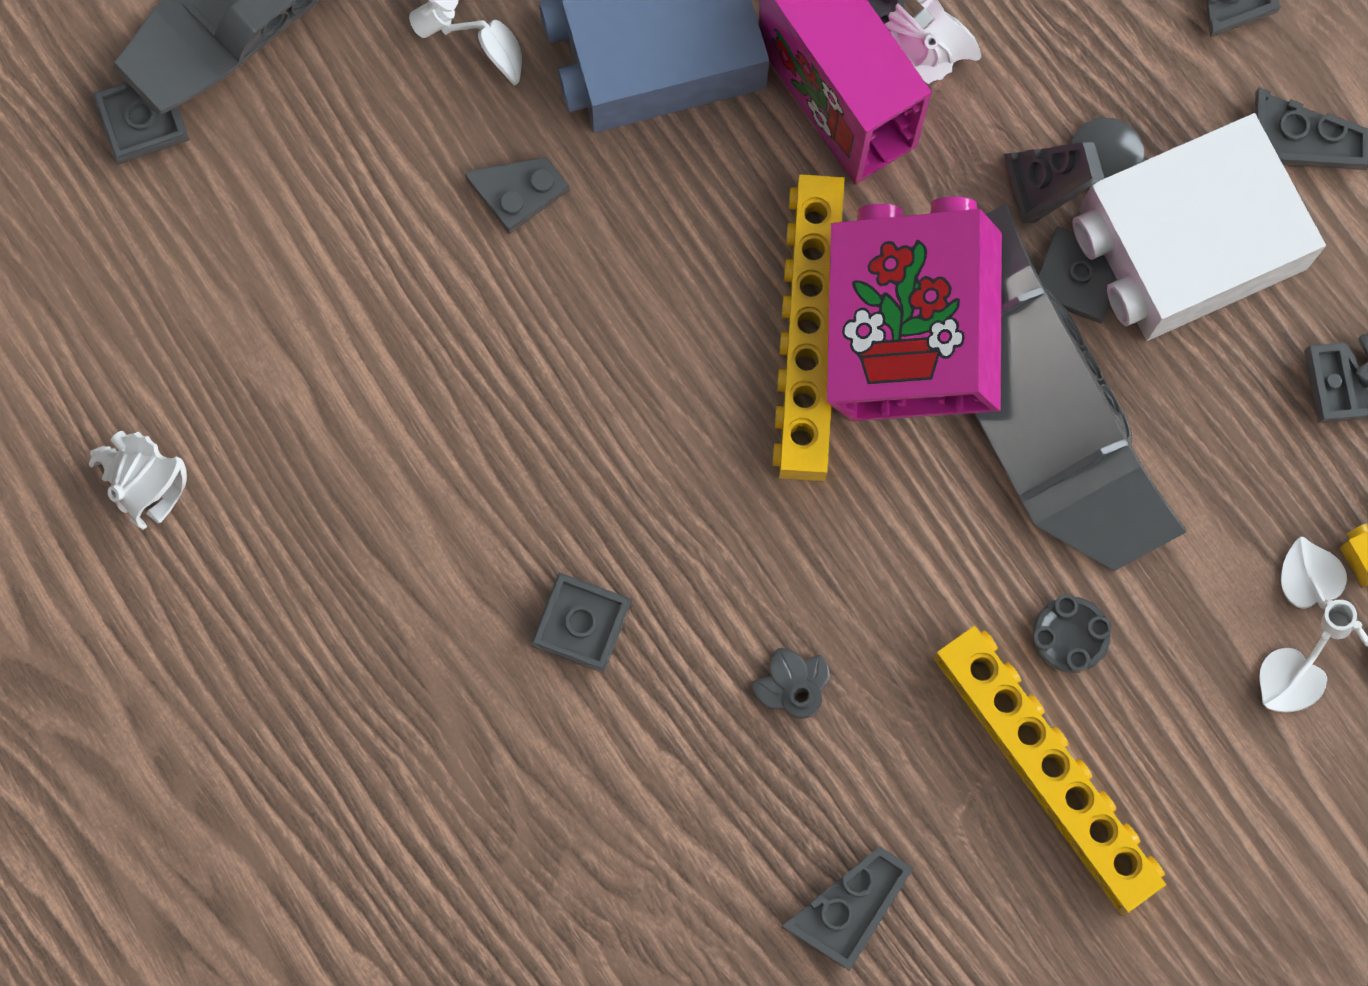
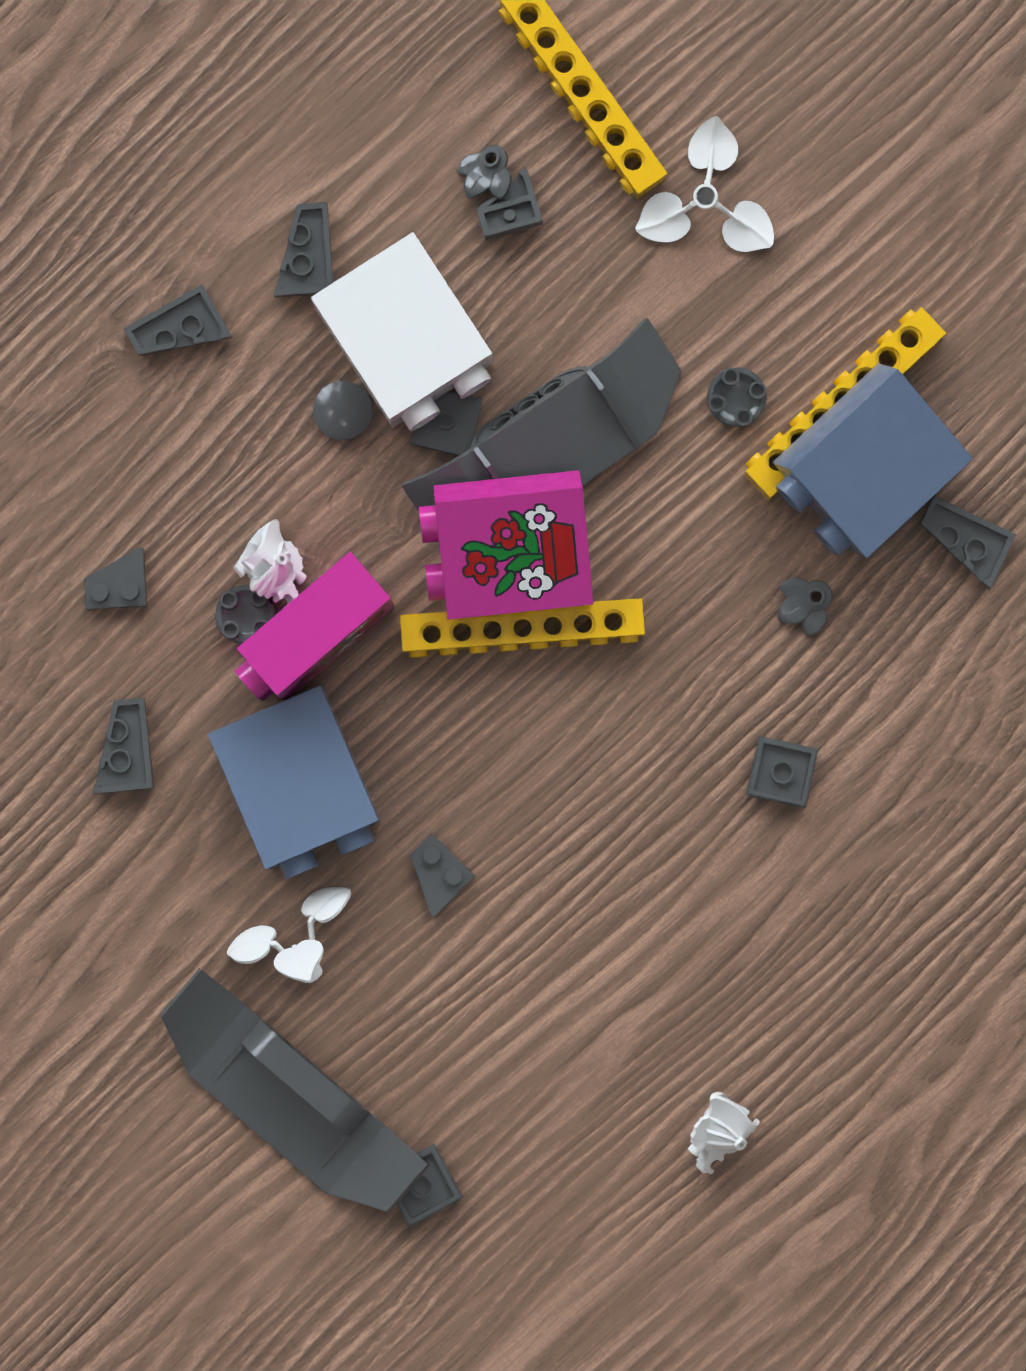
camera: 95 degrees left, 10 degrees up
(966, 780) = (870, 462): none -> sand blue brick
(1051, 177) = (377, 452): dark grey wing -> none

